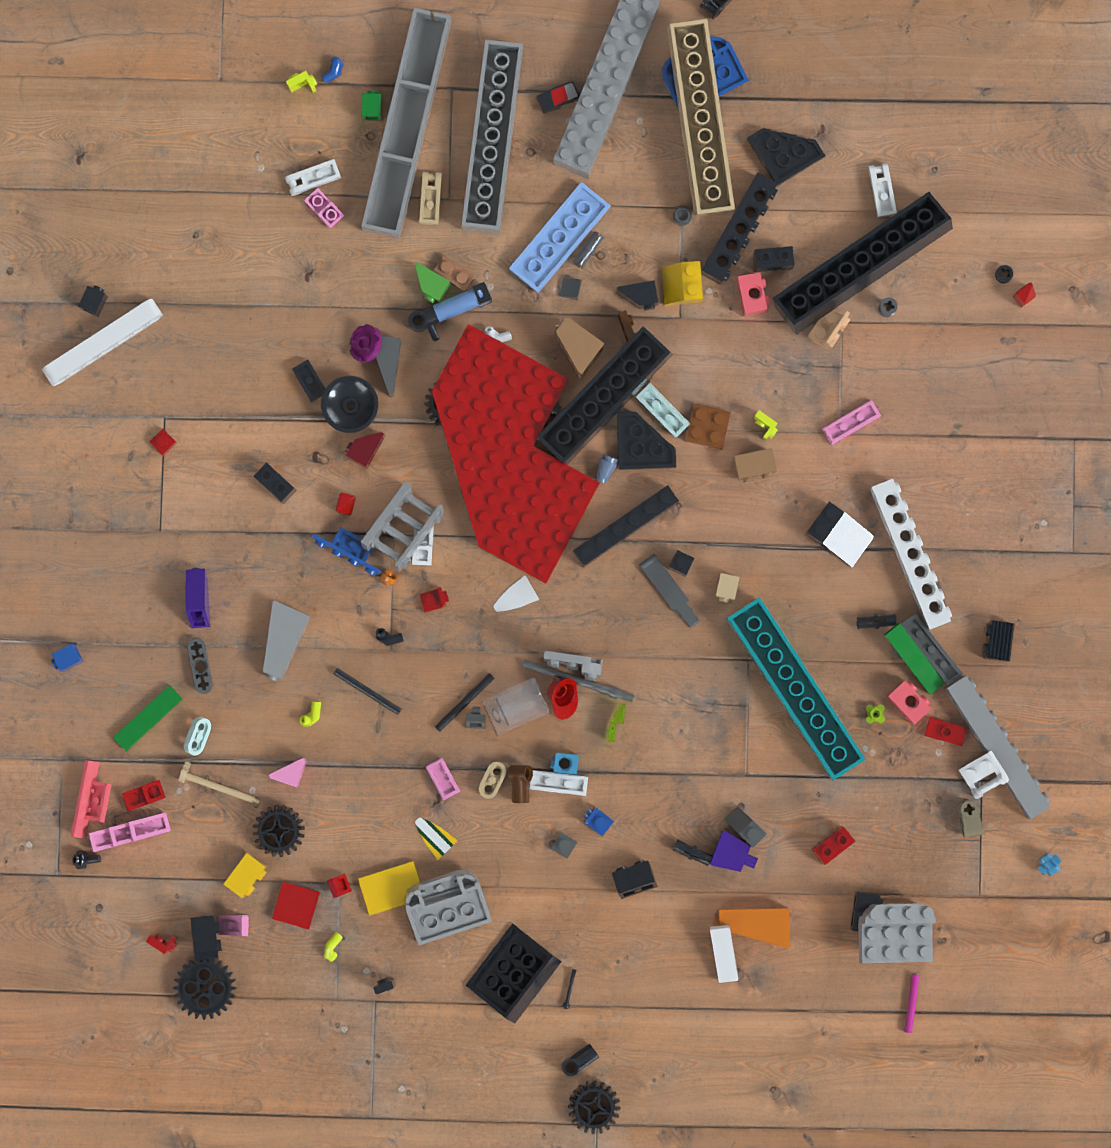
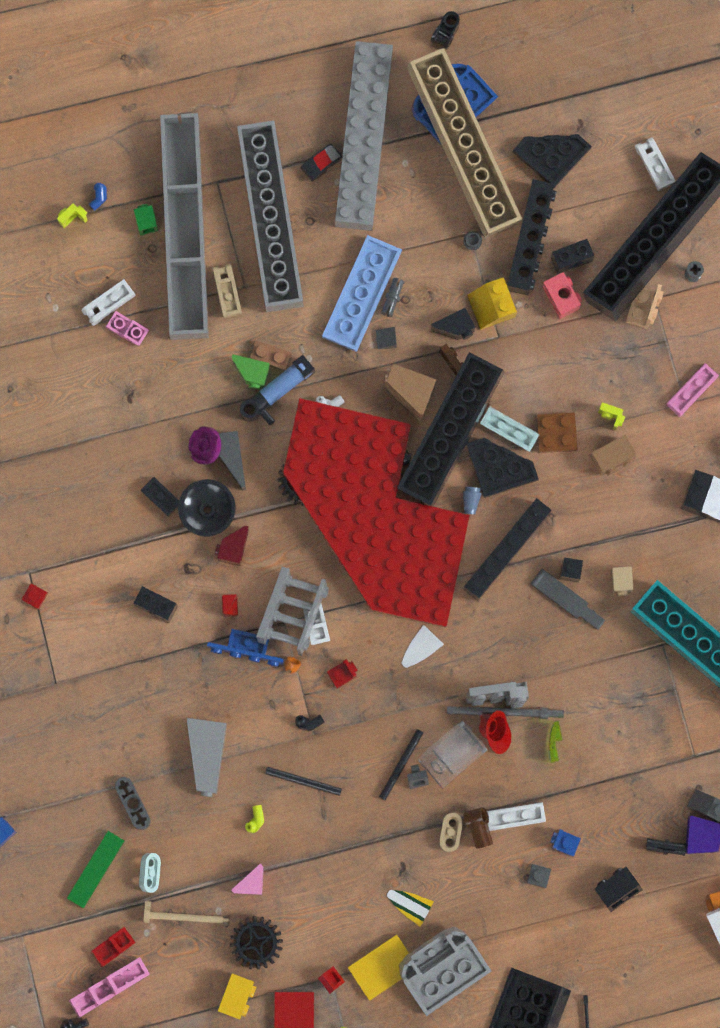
camera: 20 degrees left, 5 degrees down
(91, 801) = (63, 965): coral bracket -> none
(197, 598) = (111, 737): dark purple slope -> none
(442, 779) = (401, 845): bright pink plate -> none
(573, 763) = (525, 795): dark azure brick -> none

